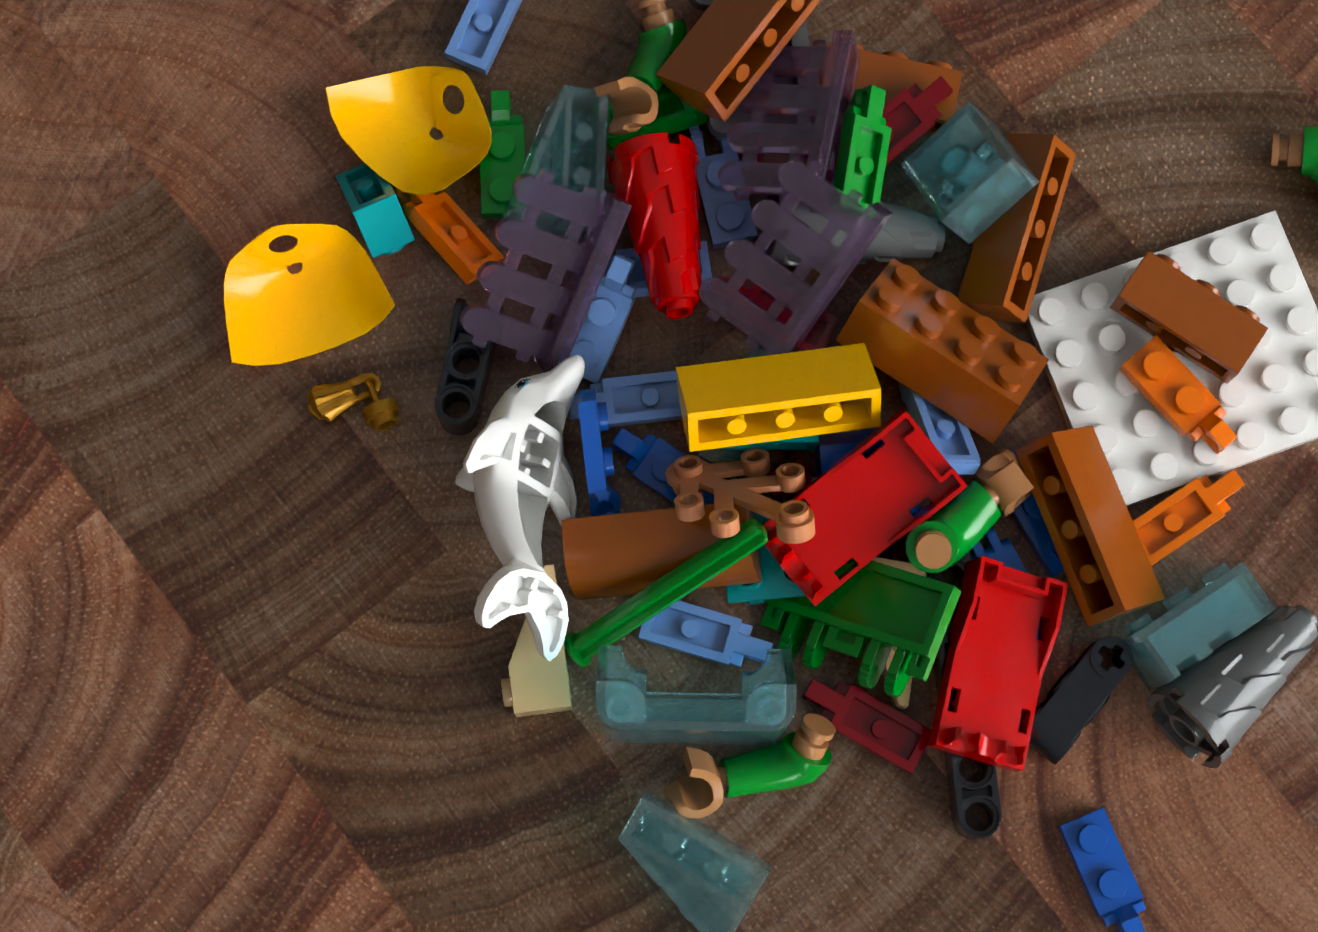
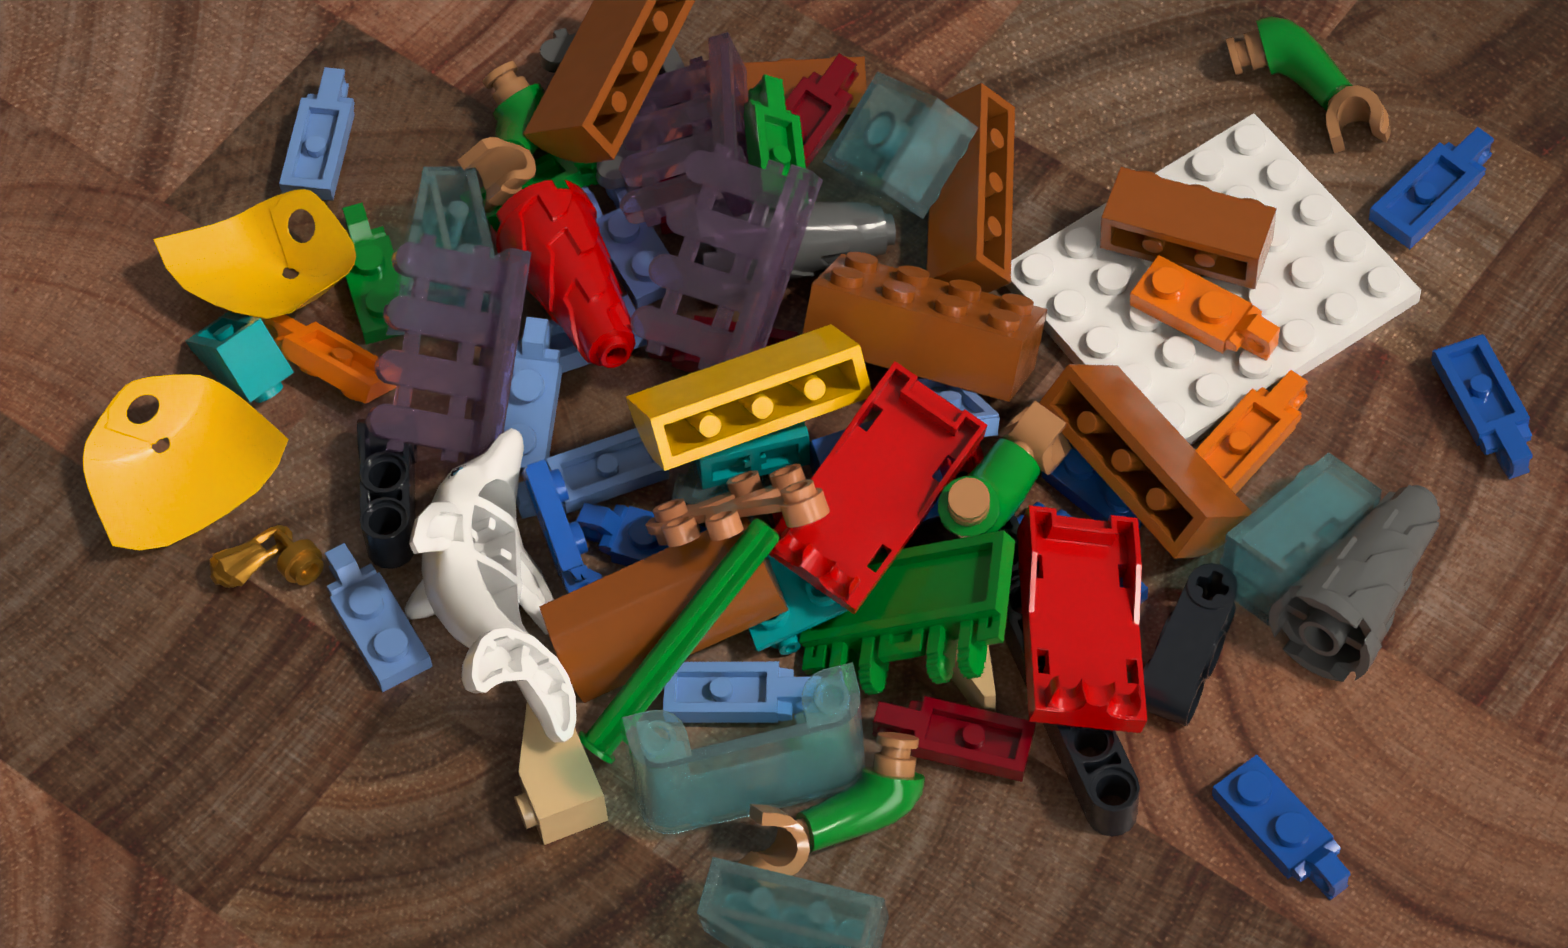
camera: 10 degrees left, 20 degrees down
(429, 482) = (375, 621): none -> medium blue hinge

